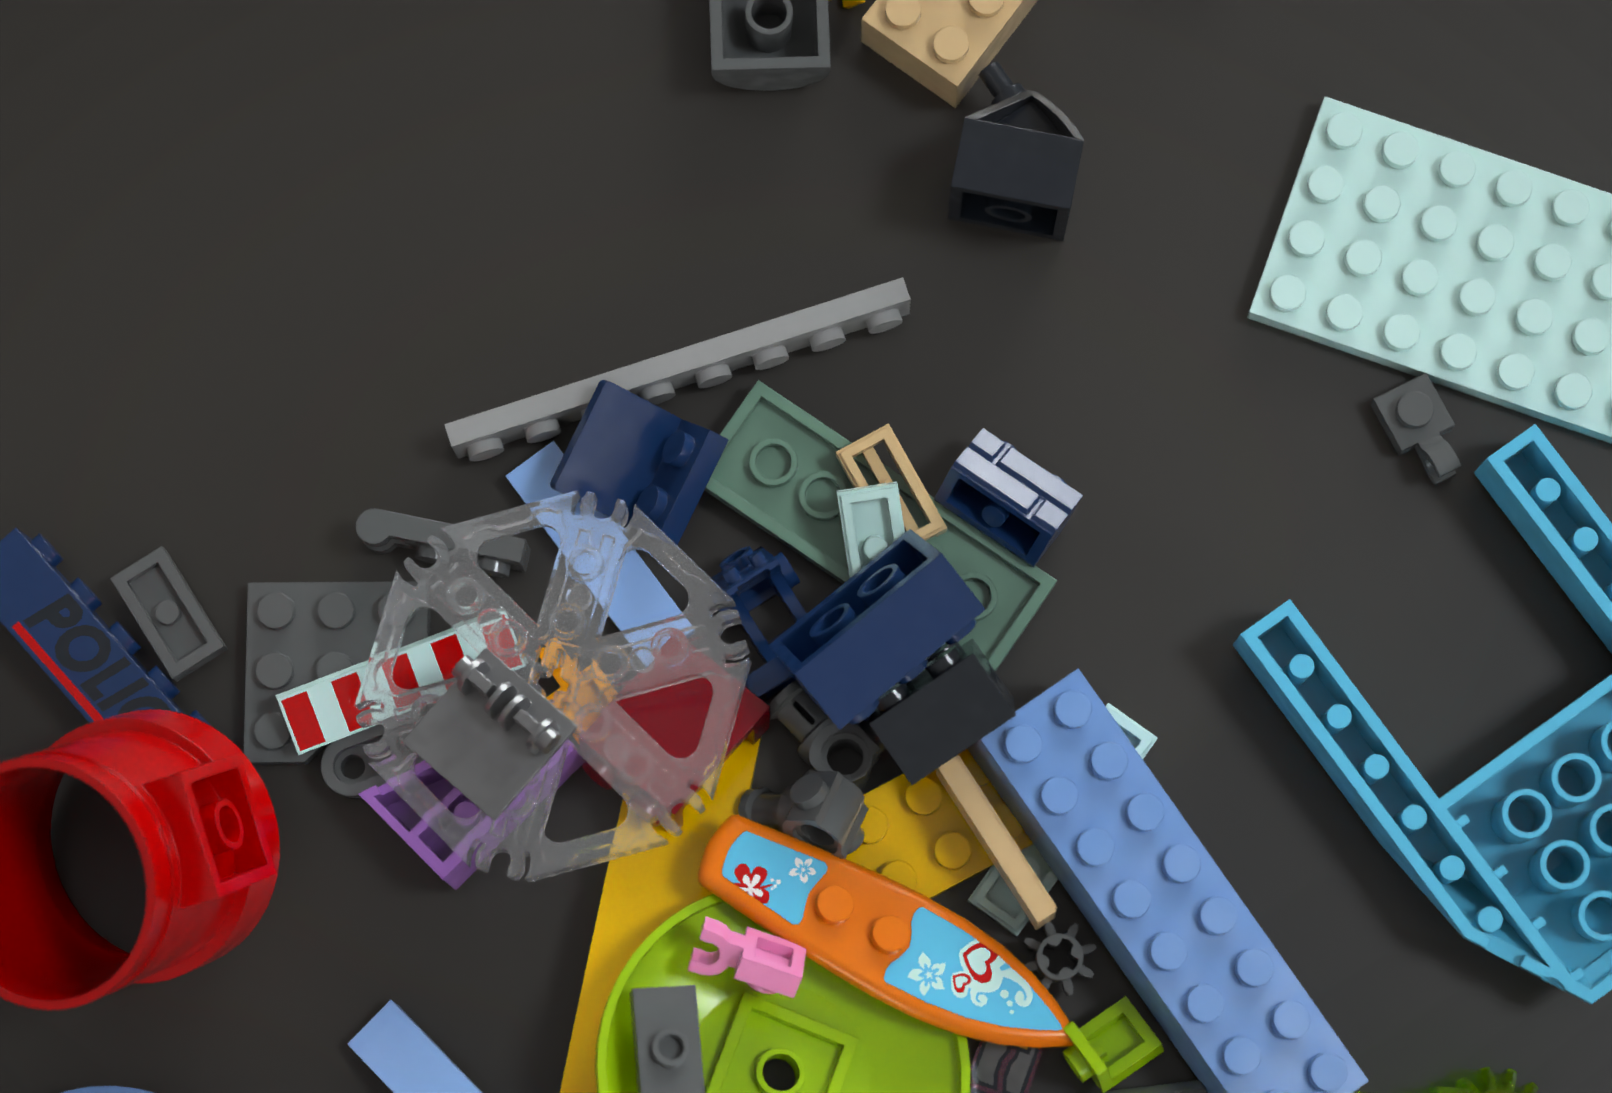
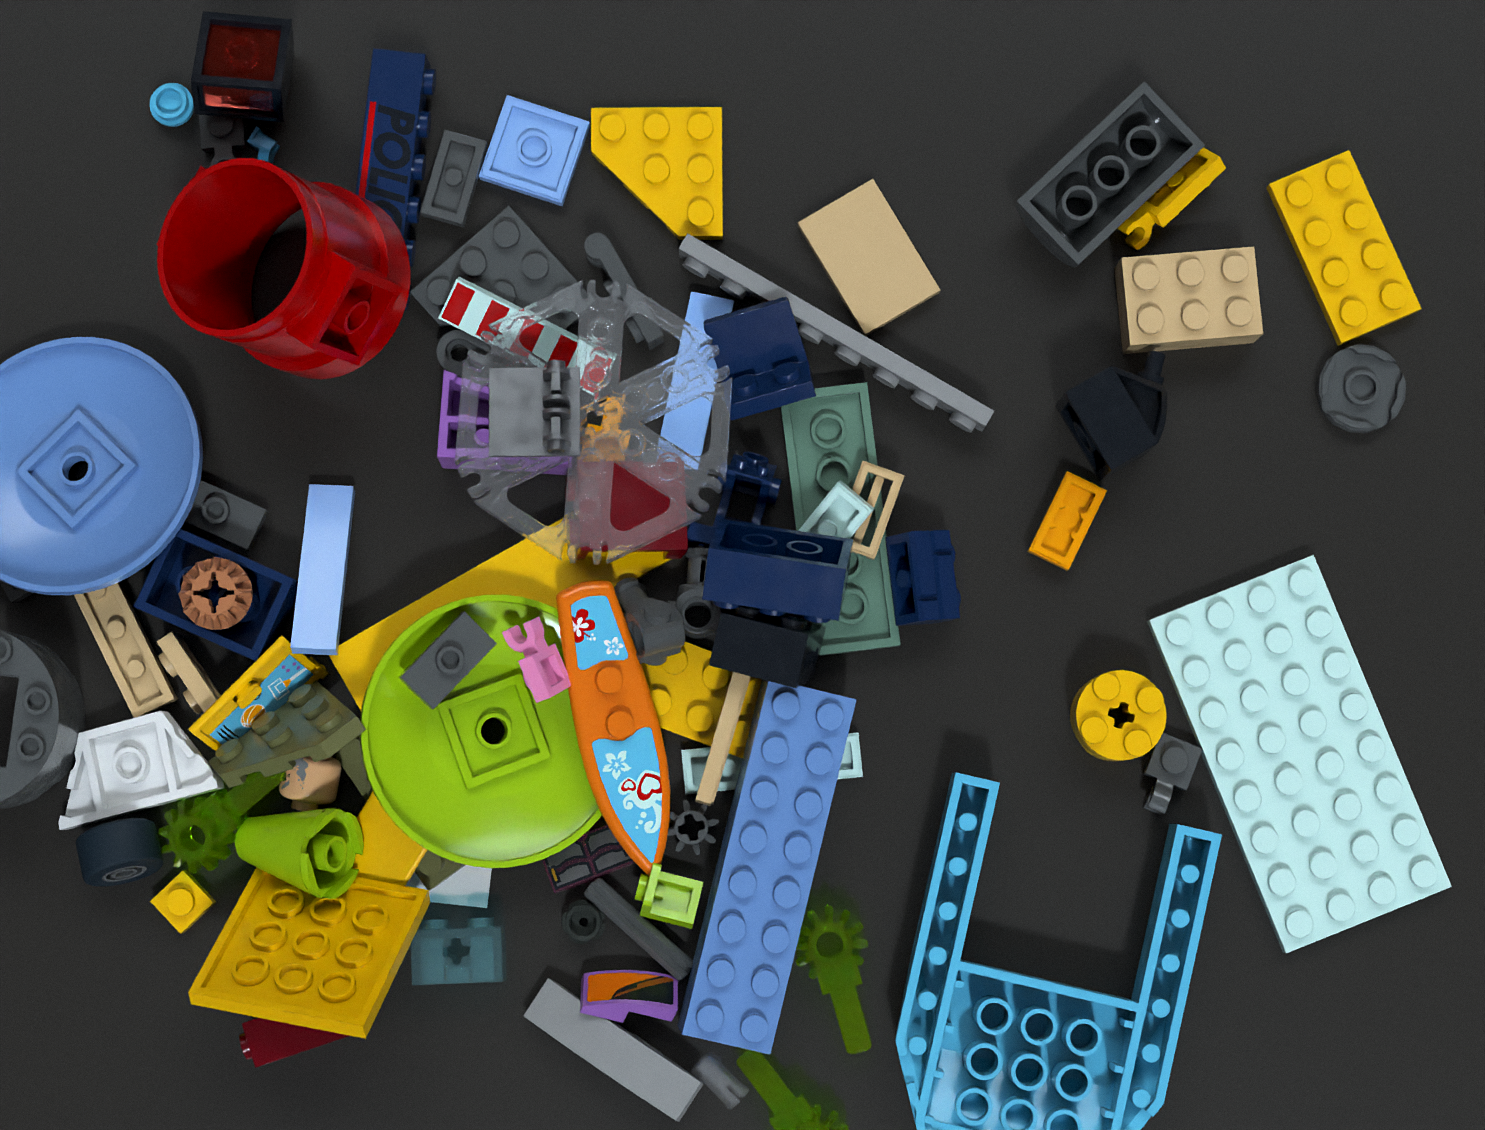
camera: 45 degrees right, 5 degrees up
(215, 508) = (534, 150): none -> light blue tile
(351, 386) = (667, 162): none -> yellow plate
(632, 270) = (868, 257): none -> tan tile
(1076, 306) = (1067, 521): none -> light orange plate
(1328, 392) = (1140, 702): none -> yellow brick
(1341, 938) = (838, 974): none -> clear neon green gear

